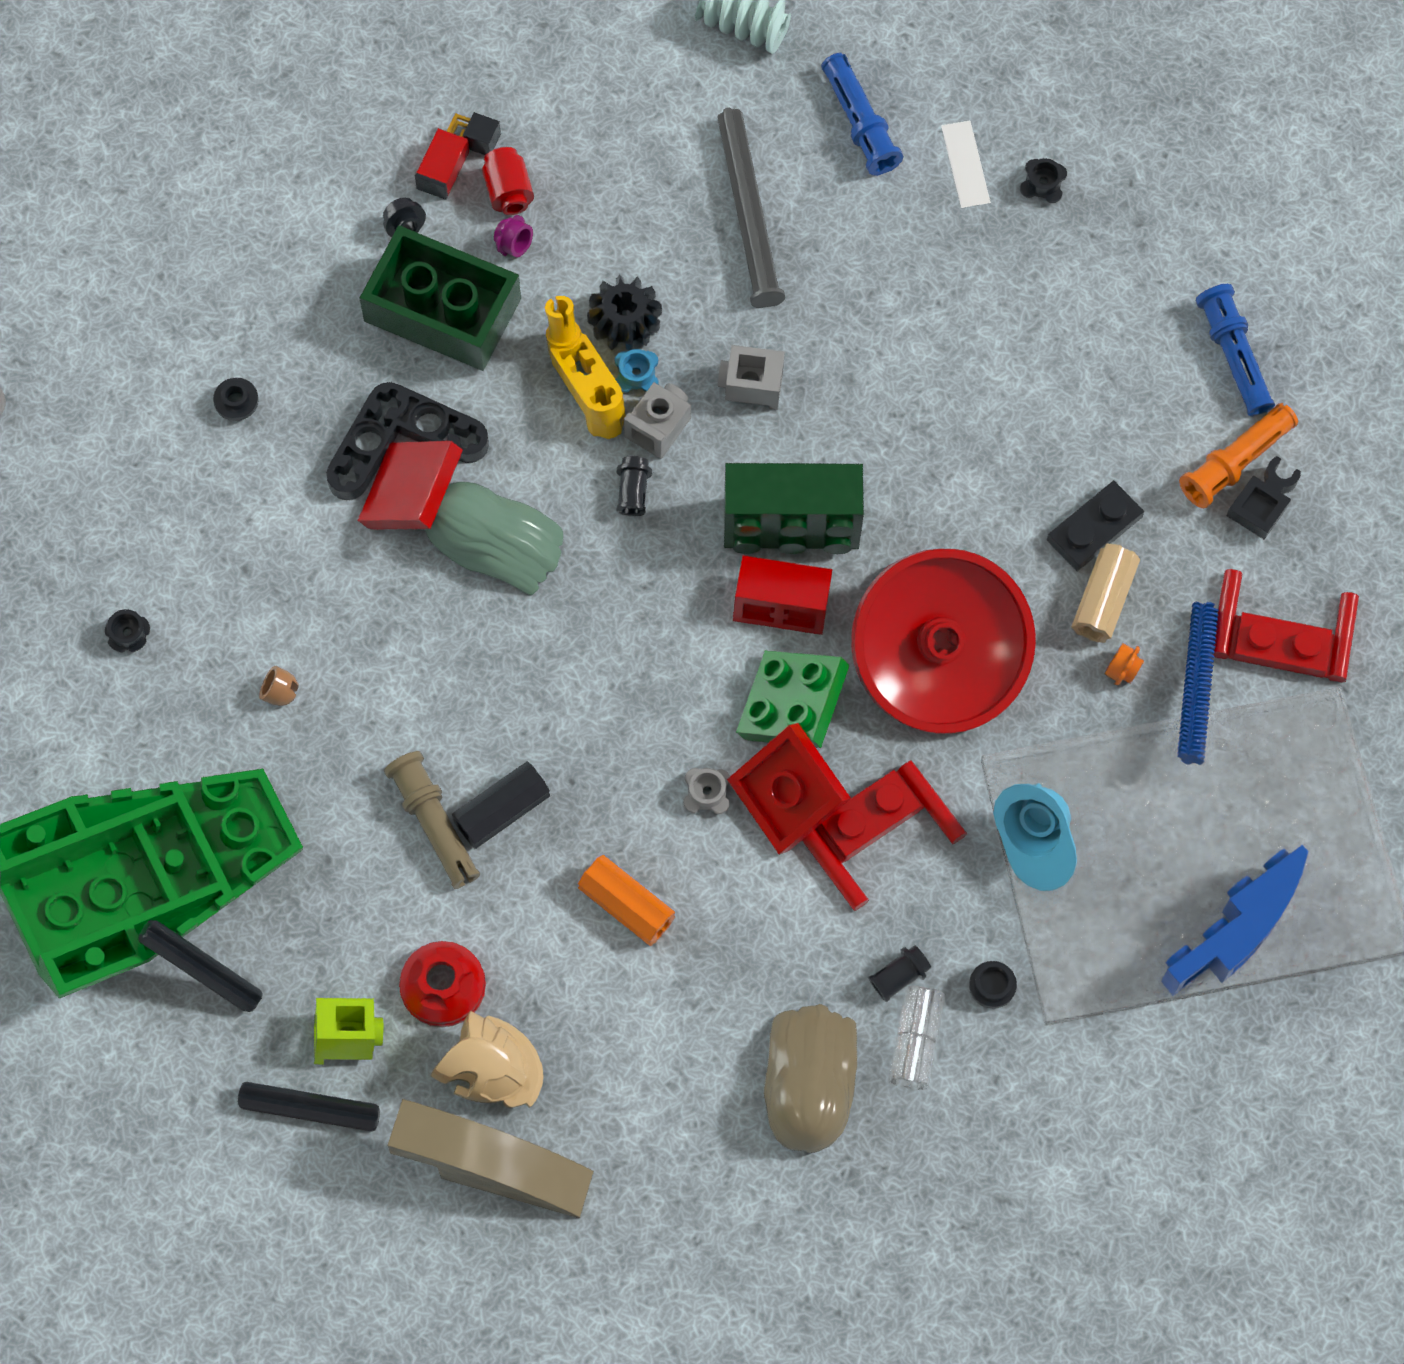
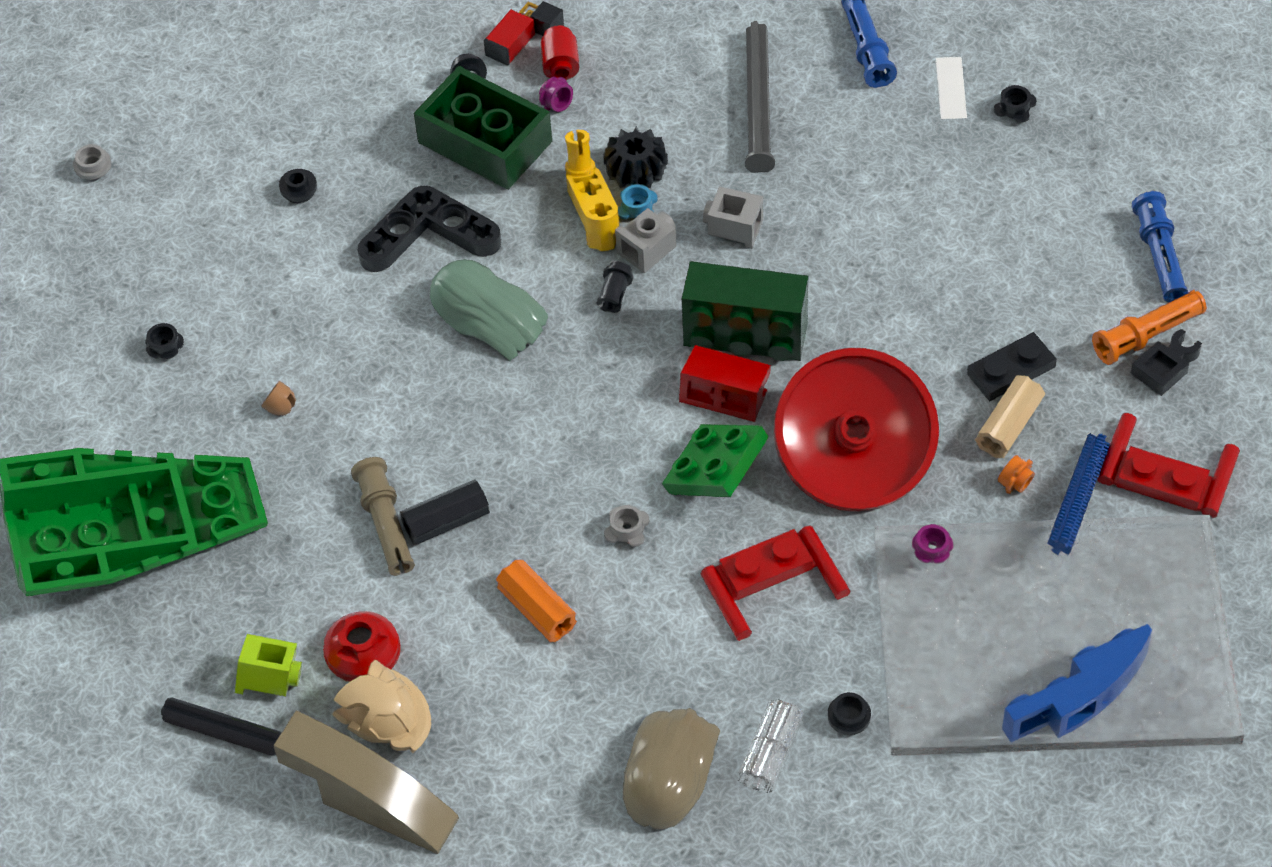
camera: 15 degrees right, 15 degrees down
(200, 965) = (154, 594): black axle -> none
(410, 485) = (424, 259): red tile -> none
(788, 788) = (696, 527): red tile -> none
(900, 972) = (774, 687): black pin -> none
(1036, 835) = (907, 586): medium azure piece -> none
(1056, 762) = (936, 536): none -> magenta plate

